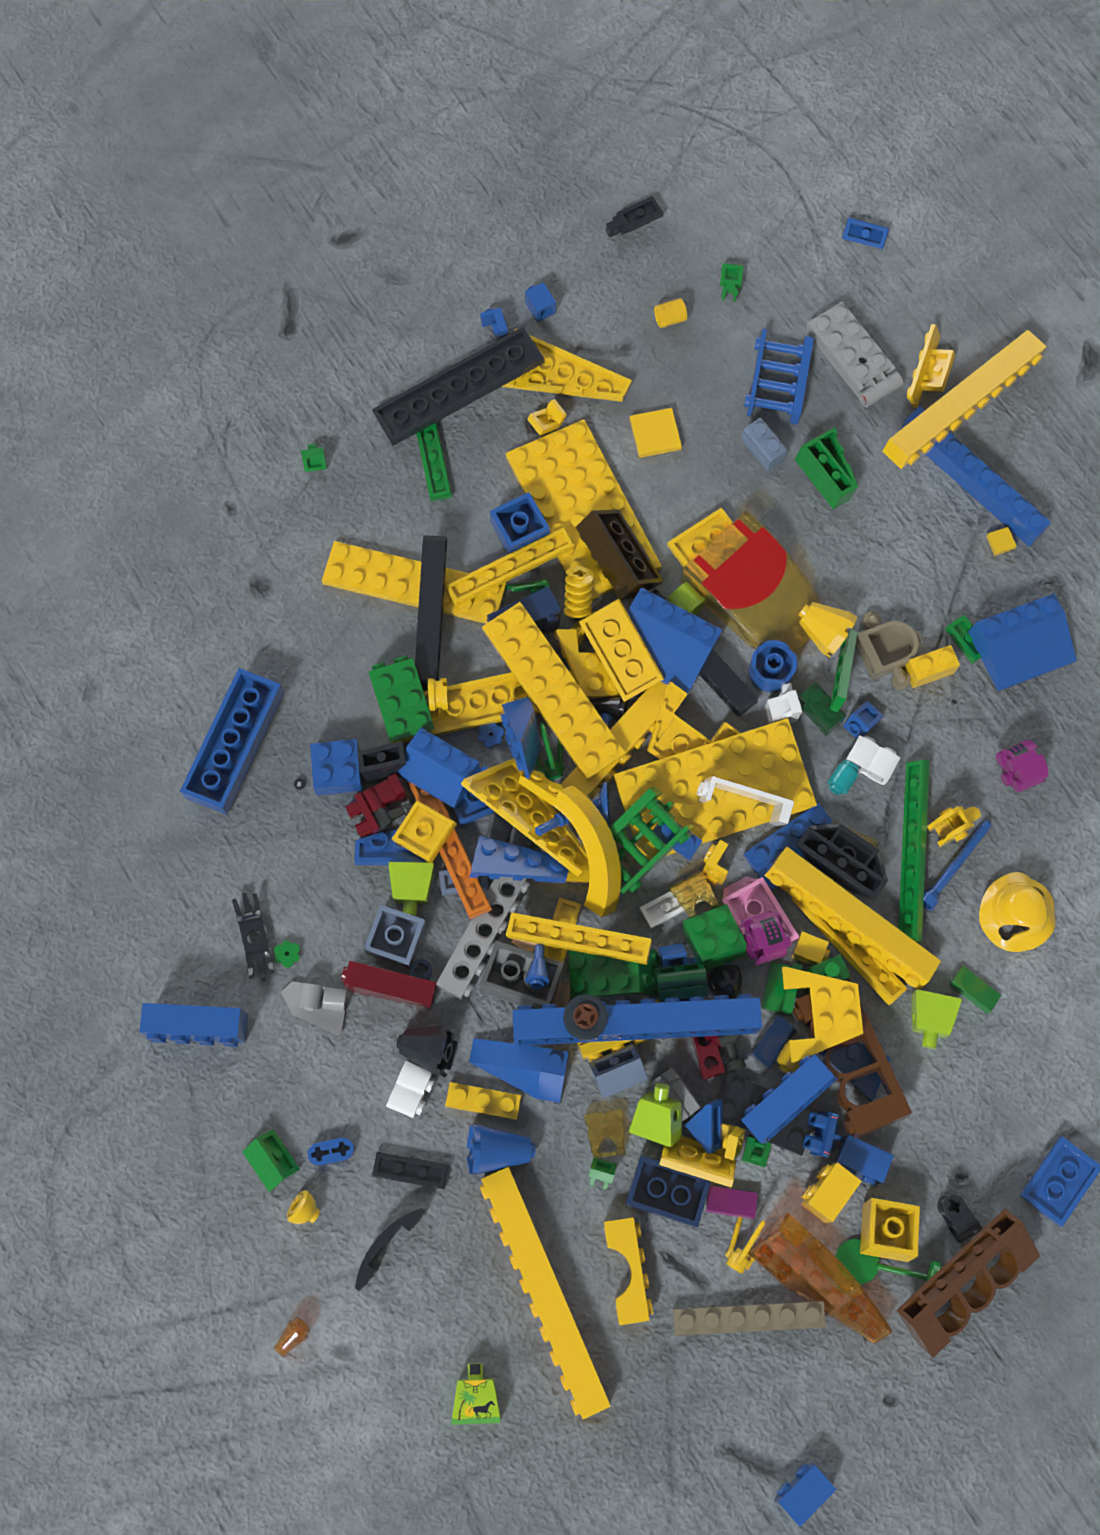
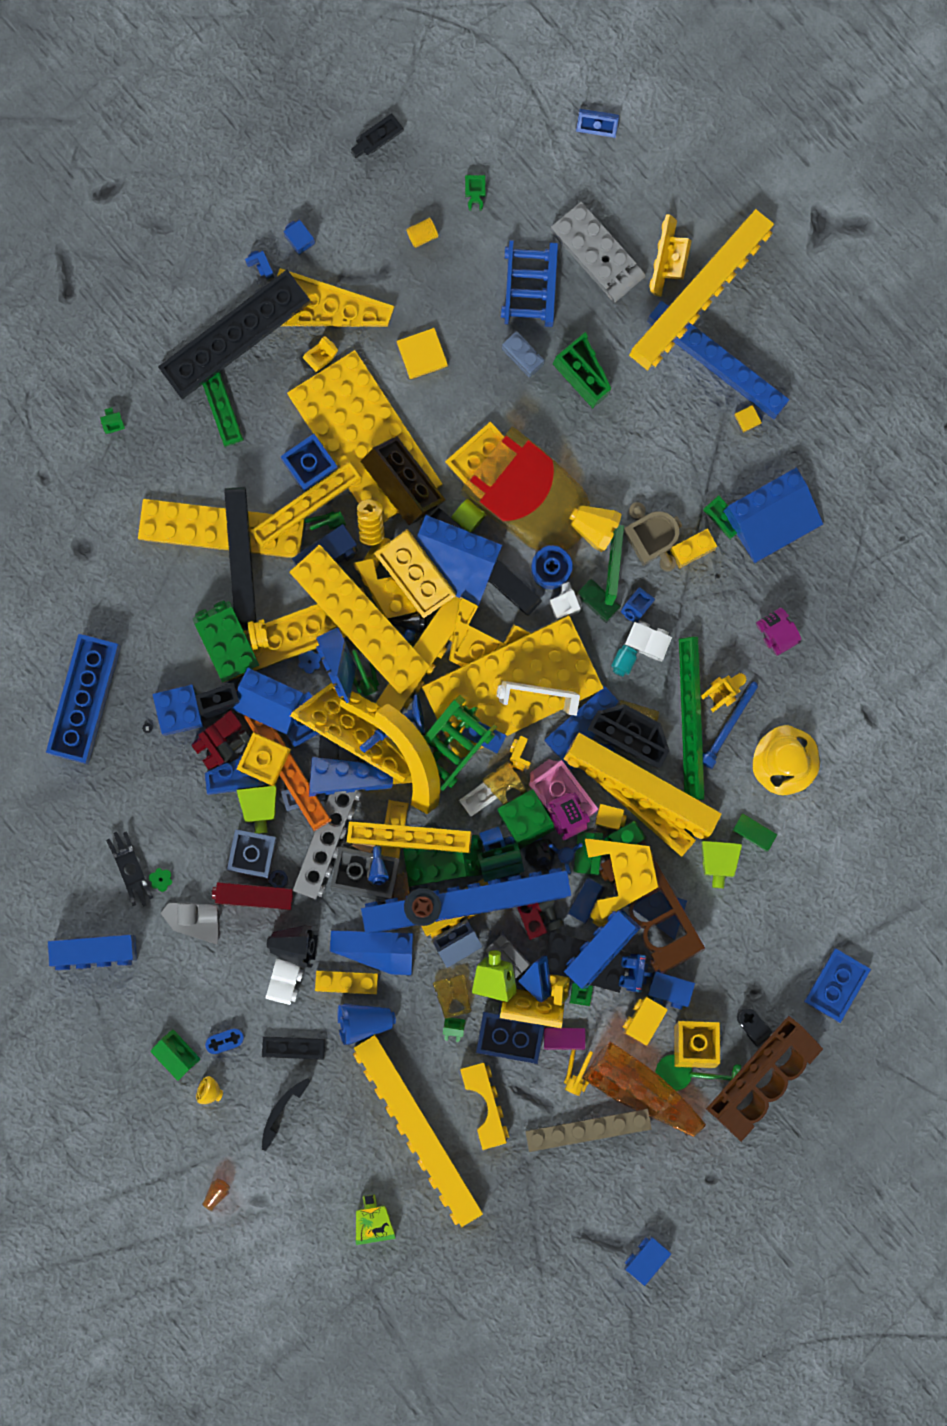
camera: 10 degrees left, 10 degrees up
(756, 984) = (566, 855): none -> blue plant

